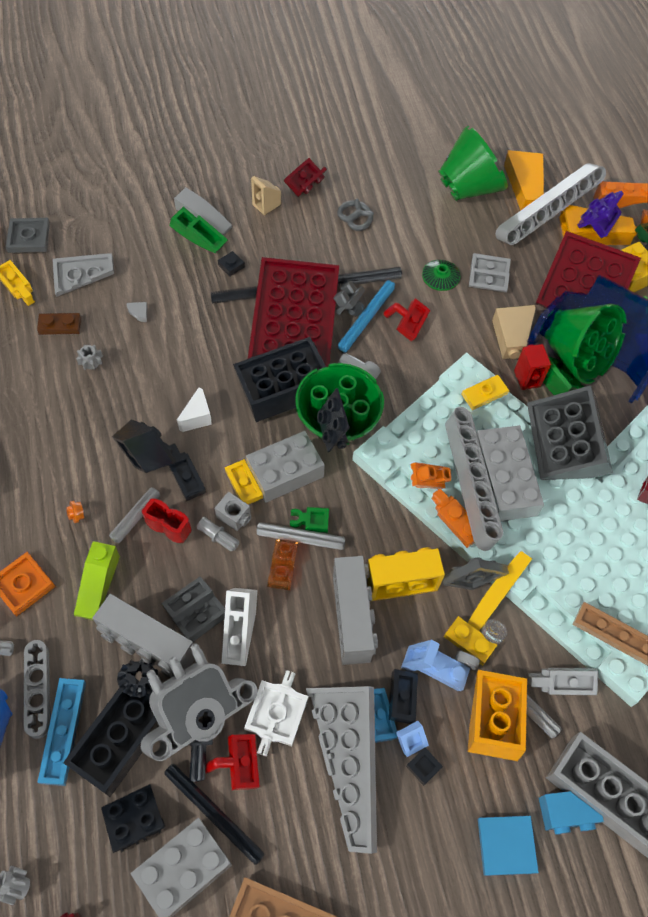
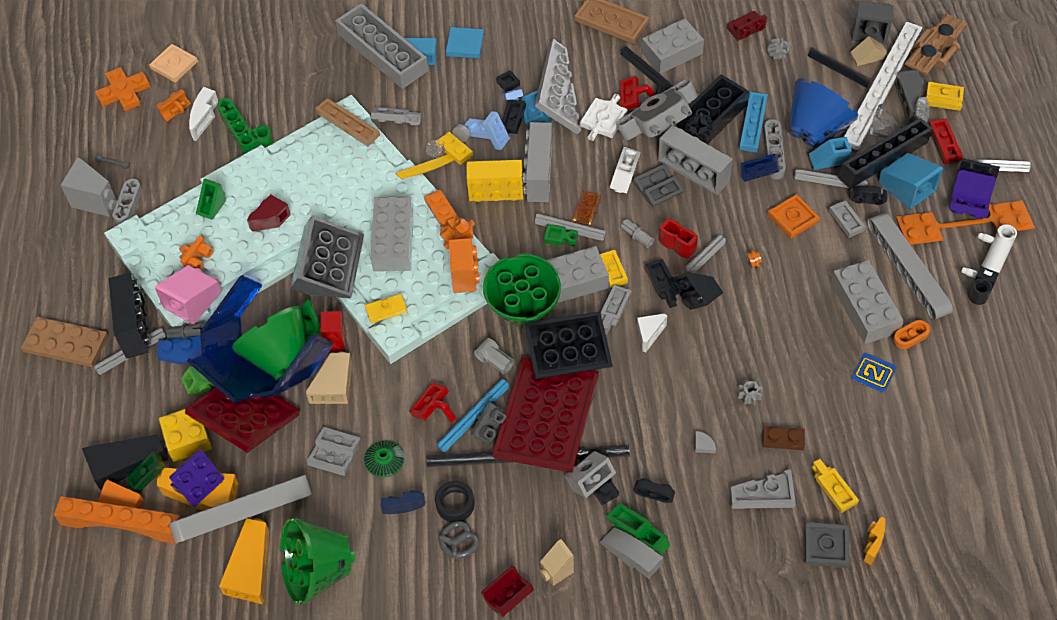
camera: 165 degrees left, 5 degrees down
(58, 642) = (760, 167): none -> clear blue plate
(96, 579) = (733, 211): lime slope -> none
(132, 818) = (702, 71): black hinge -> none
(185, 261) = (654, 491): none -> black plate
(231, 503) = (624, 245): light grey brick -> none
(236, 270) = (590, 474): none -> light grey brick
(237, 436) = (614, 306): none -> light grey hinge
(333, 422) = (532, 253): black hinge -> none
(367, 229) = (451, 487): none -> black tyre
(413, 431) = (463, 265): none -> orange brick
(416, 230) = (410, 501): none -> dark blue slope
(473, 479) = (422, 230): light grey beam -> none
(475, 574) = (441, 169): dark grey plate -> none
(498, 716) = (451, 94): light orange slope -> none
(542, 719) = (424, 105): light grey axle -> none

